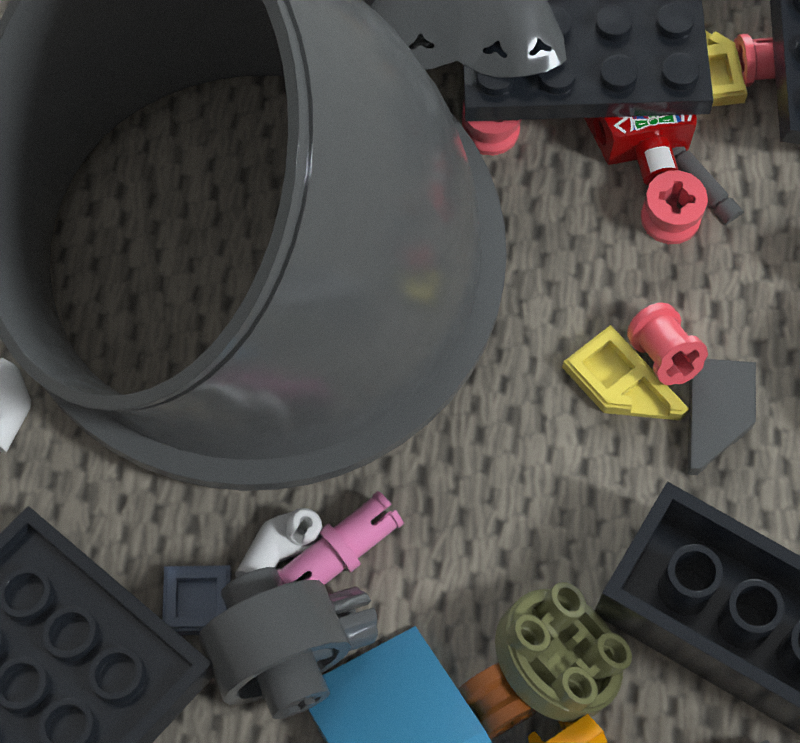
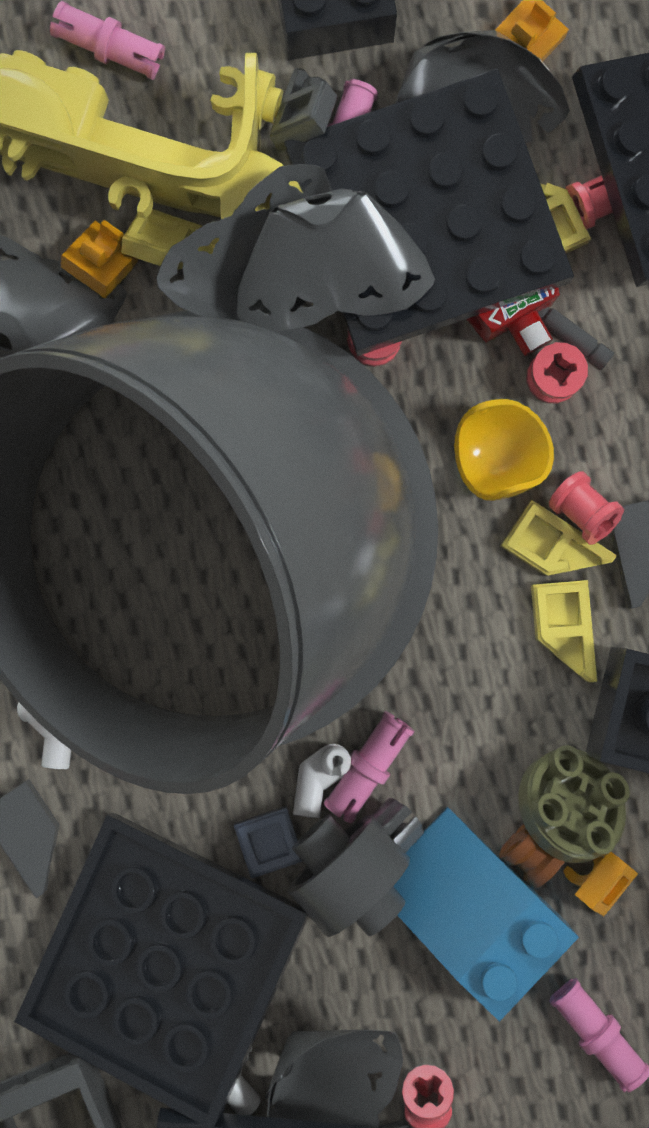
camera: 20 degrees left, 20 degrees up
(591, 257) = (502, 449): none -> yellow helmet
(610, 467) = (565, 624): none -> light yellow tile

